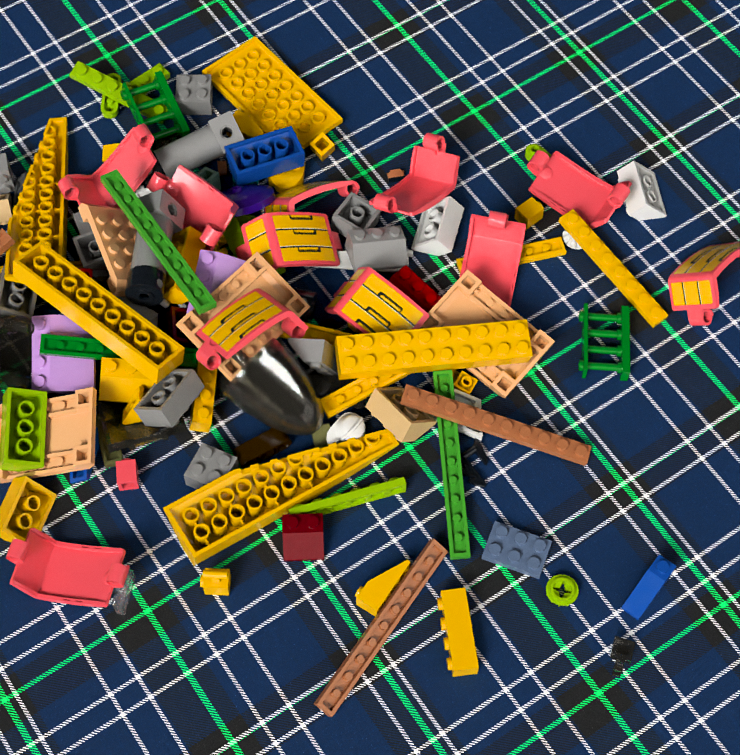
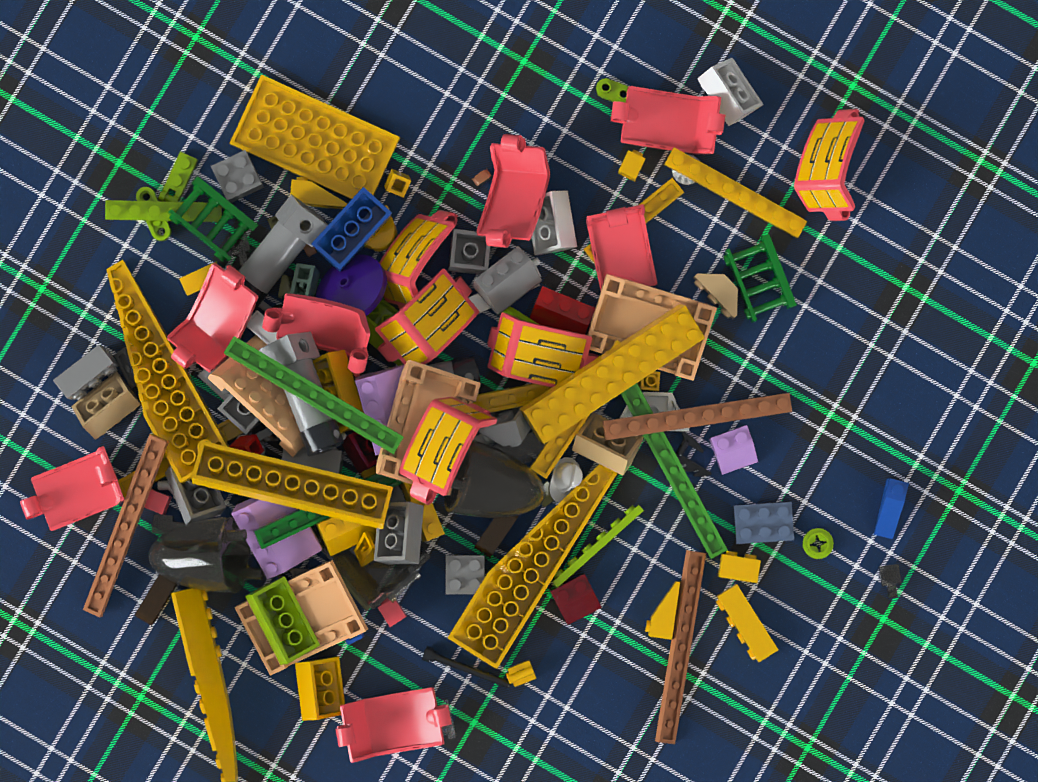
camera: 20 degrees left, 25 degrees up
(140, 528) = (431, 655): none -> black piece
(474, 577) = (739, 567): none -> yellow brick
(517, 471) = (734, 449): none -> lavender slope
(565, 336) = (720, 291): none -> tan slope

